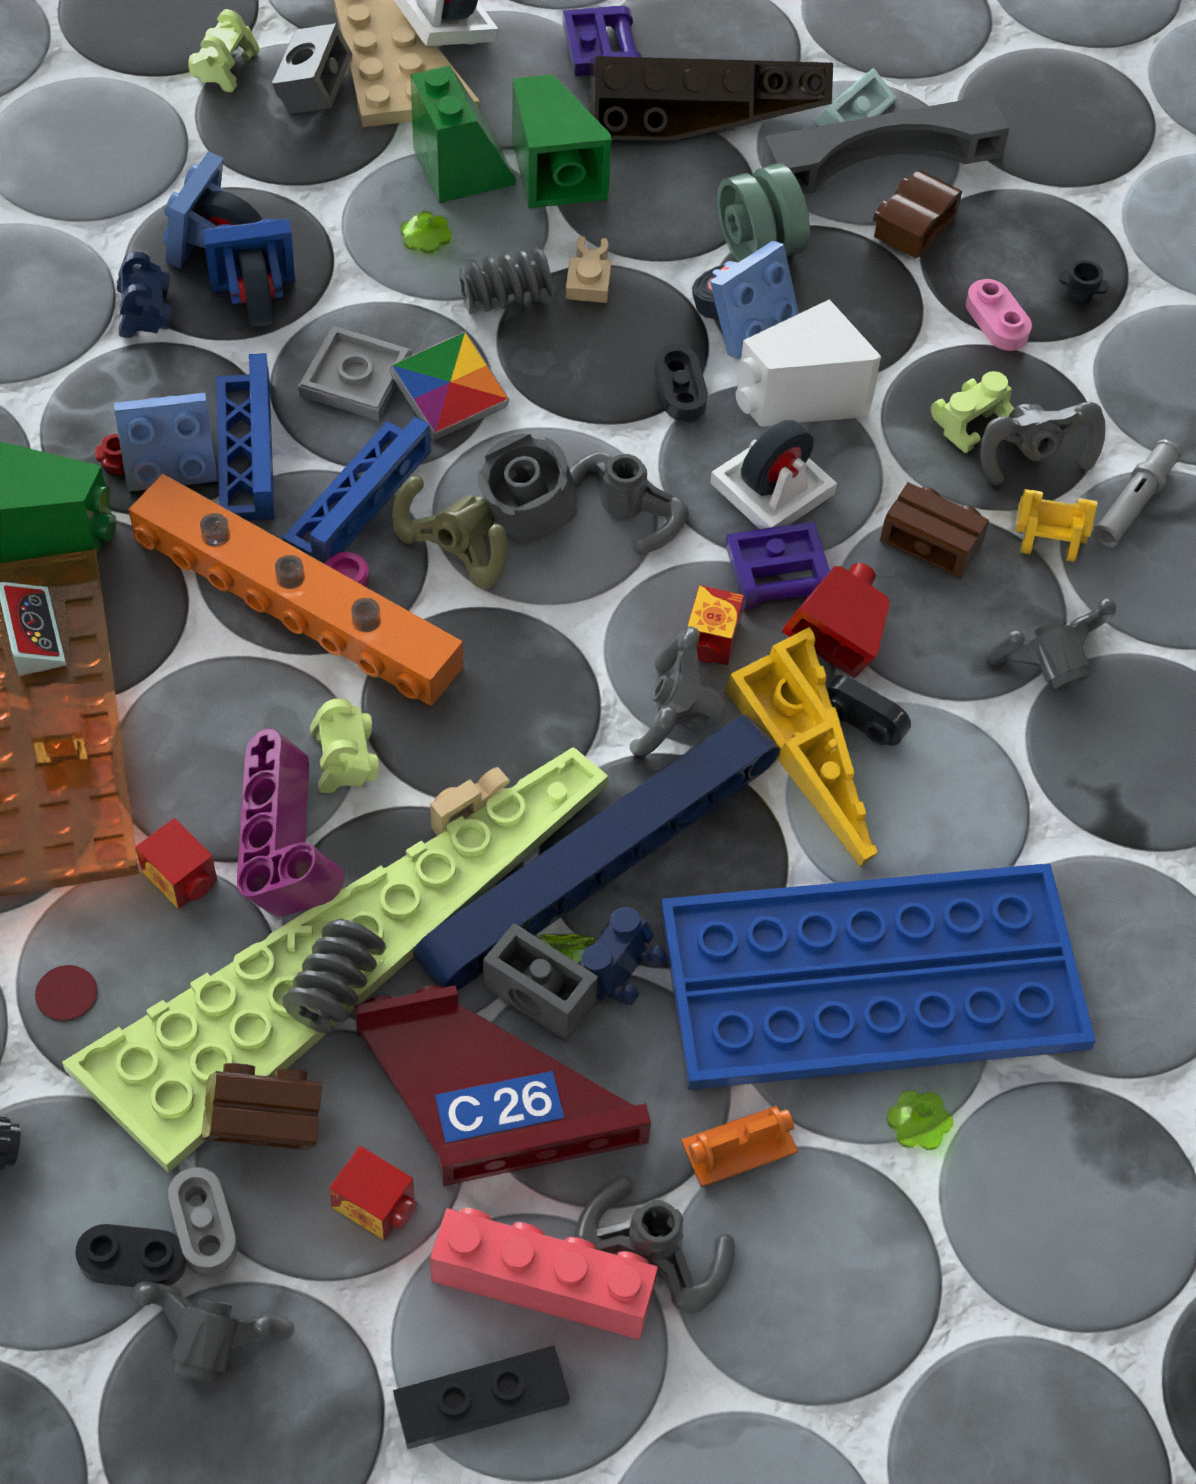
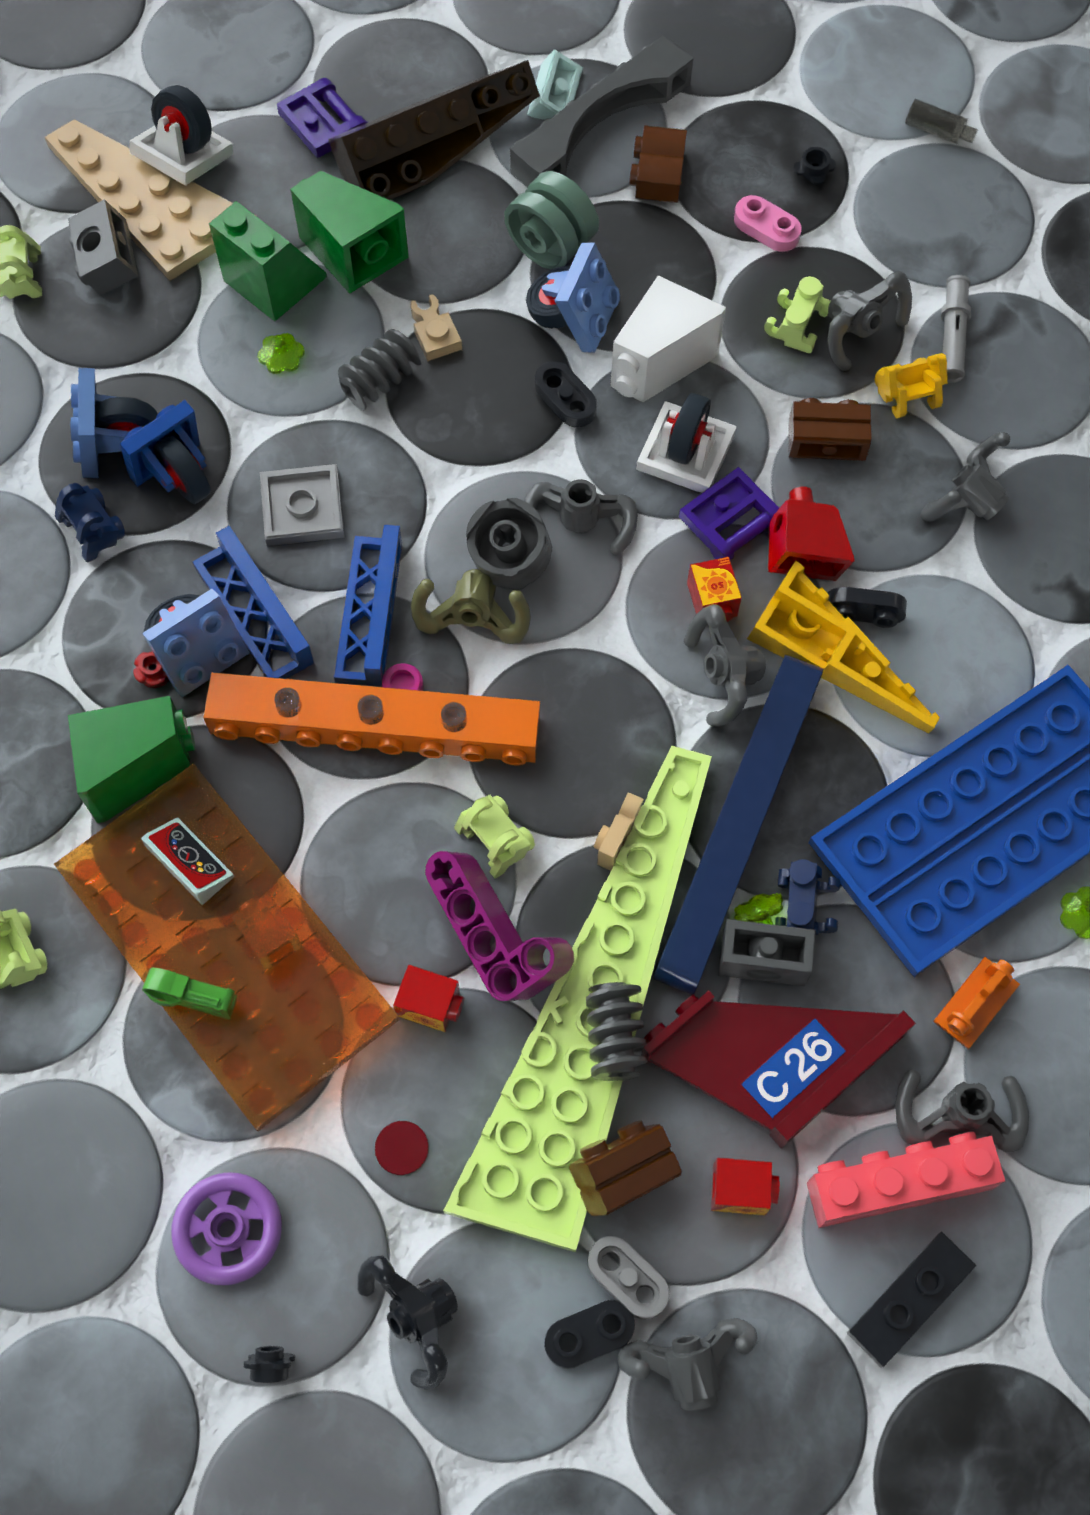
camera: 25 degrees left, 10 degrees up
(449, 385) = (386, 481): tile -> none

